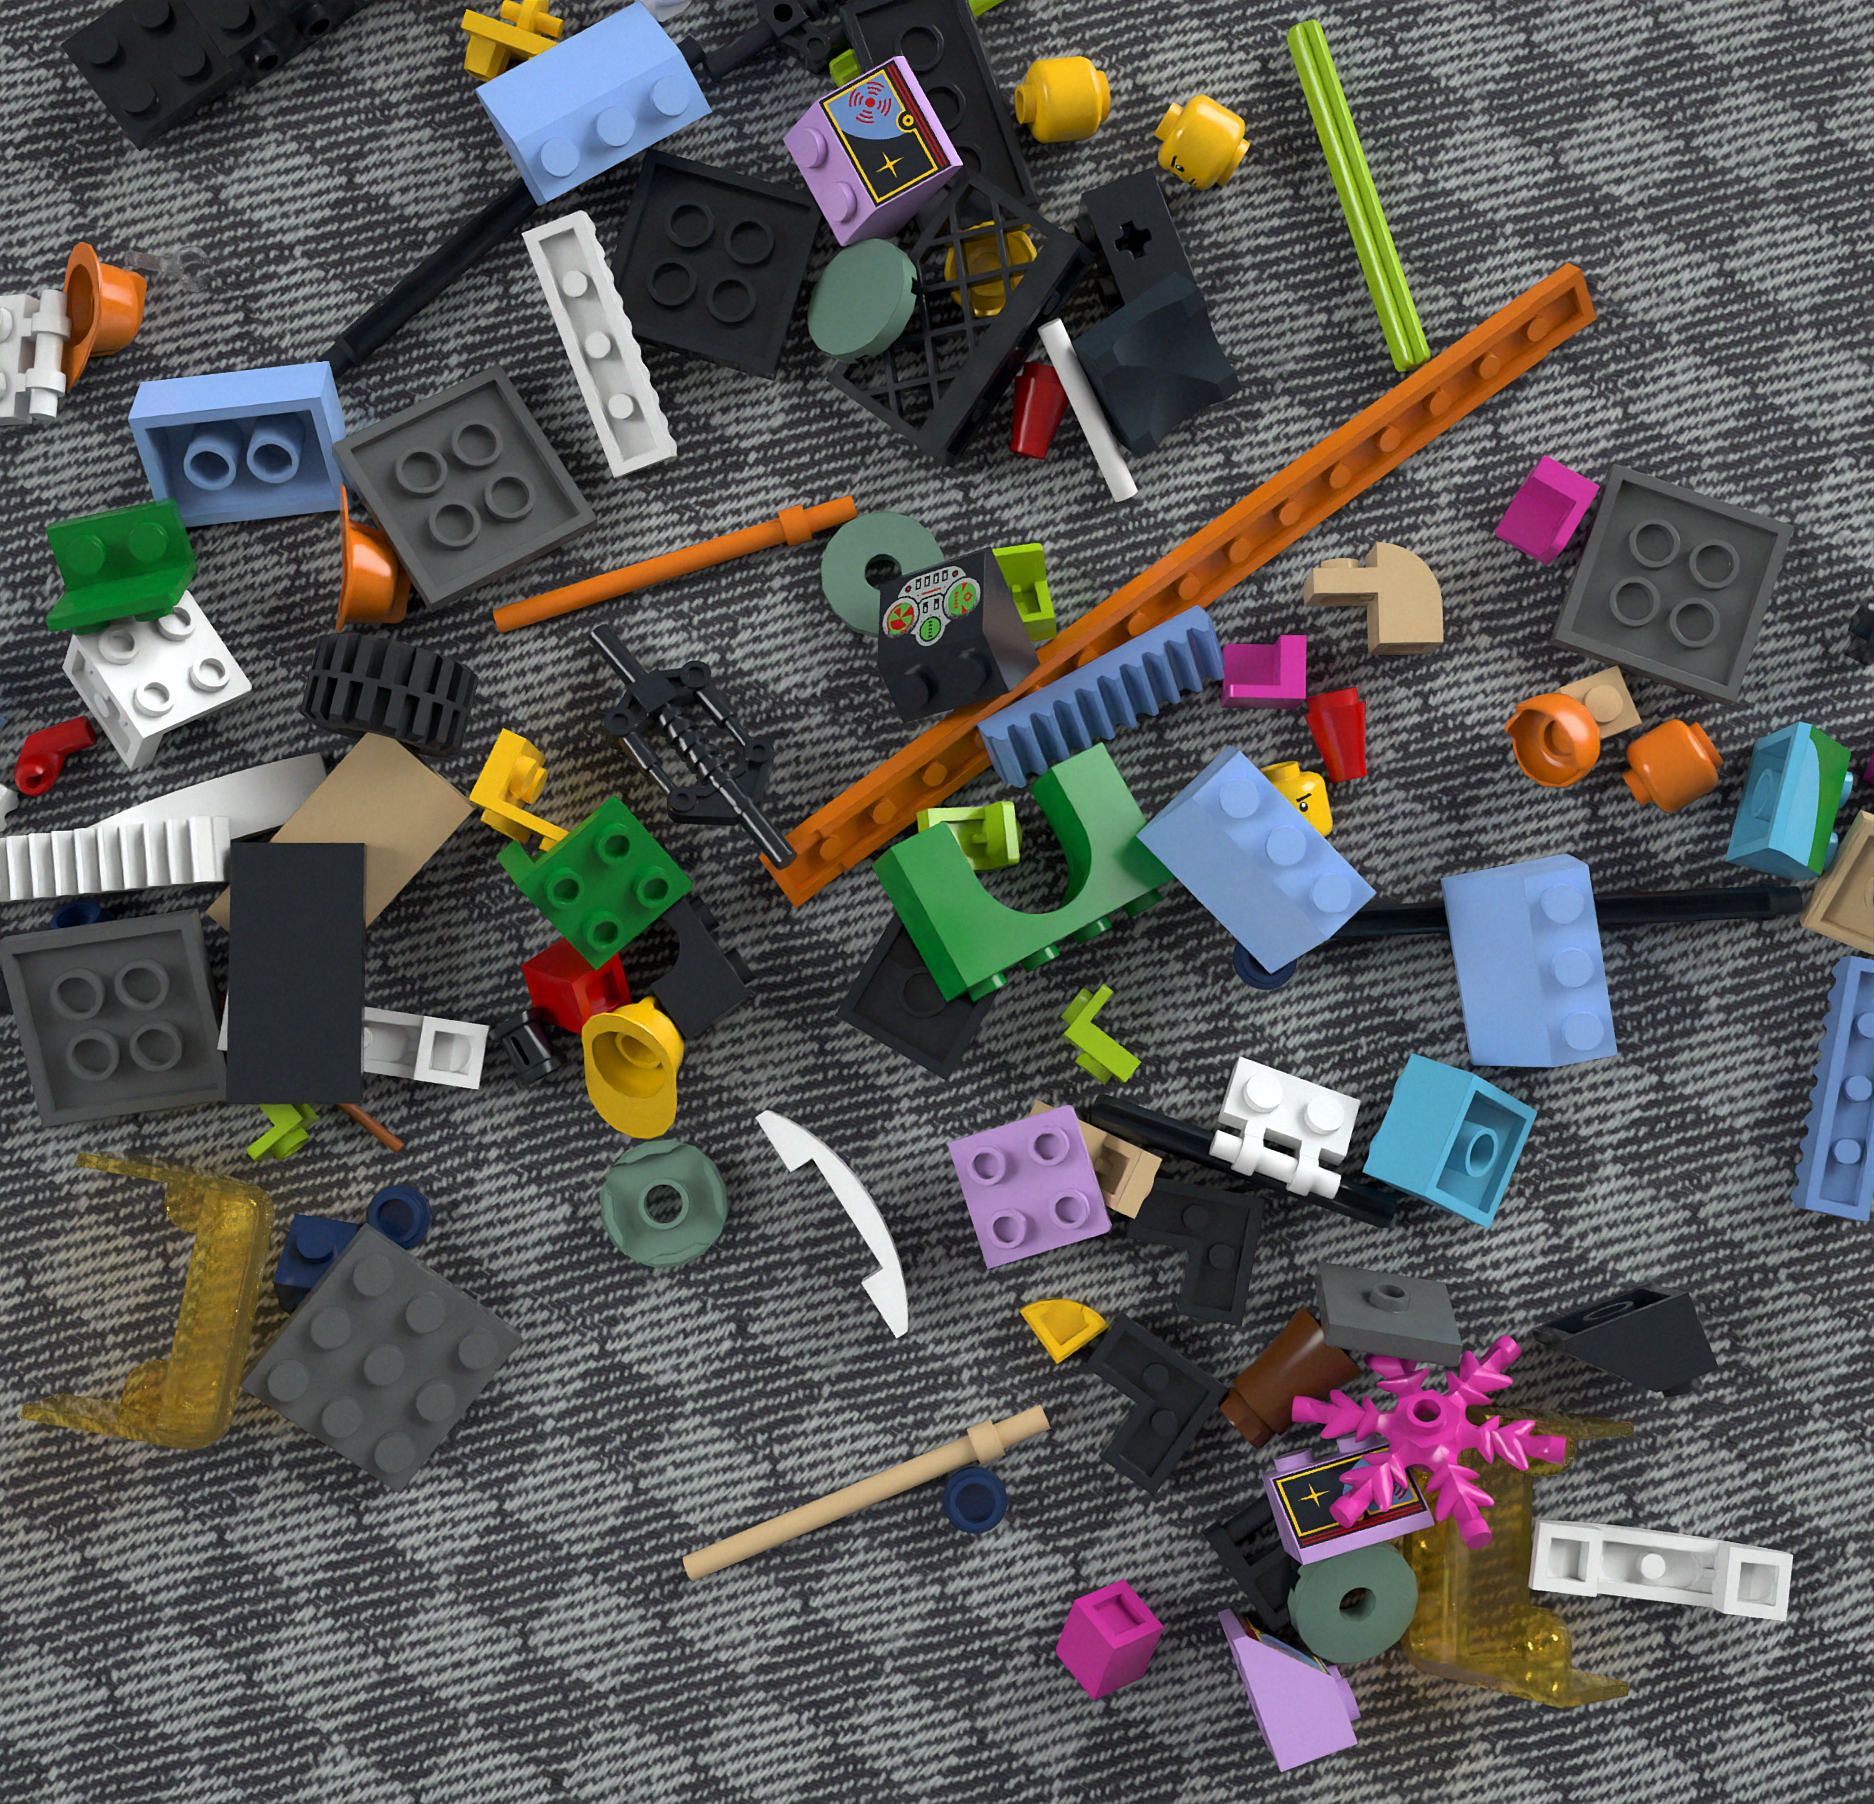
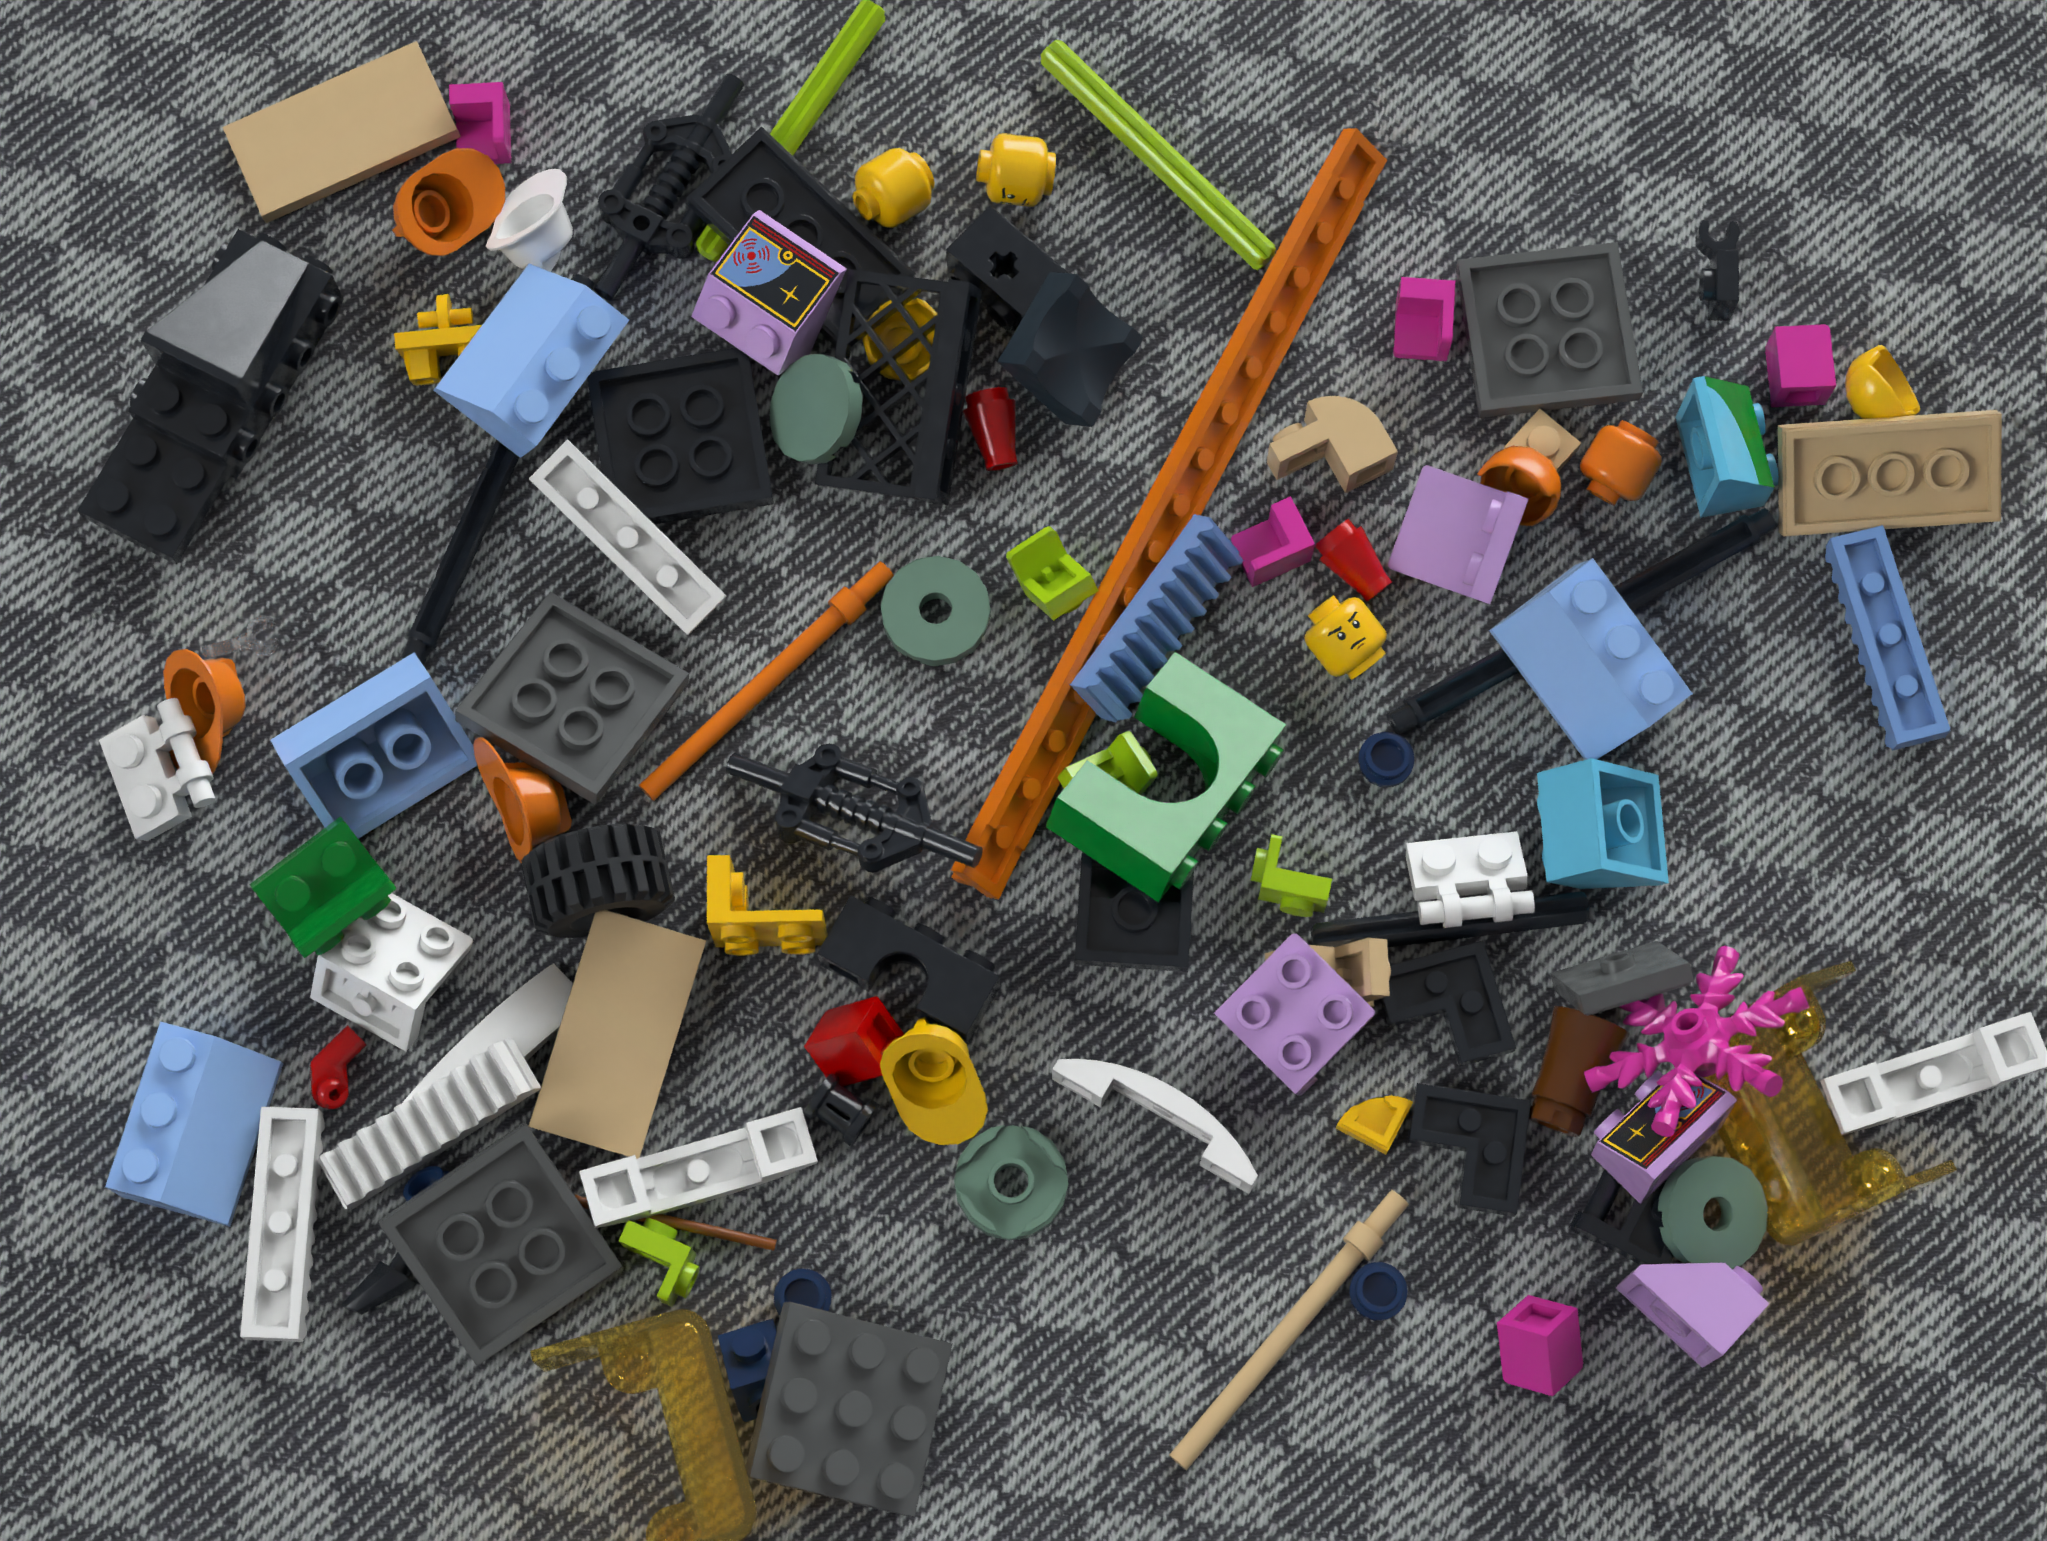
camera: 25 degrees left, 10 degrees down
(296, 973) = (631, 1134): black tile -> none
(599, 881) = (837, 943): green bracket -> none
(951, 636) = (1017, 625): black slope -> none
(1087, 410) = (1034, 408): white bar -> none
(1255, 861) = (1341, 680): light blue slope -> none
(1462, 760) = (1457, 534): none -> lavender bracket
(1639, 1337) = (1827, 902): black slope -> none

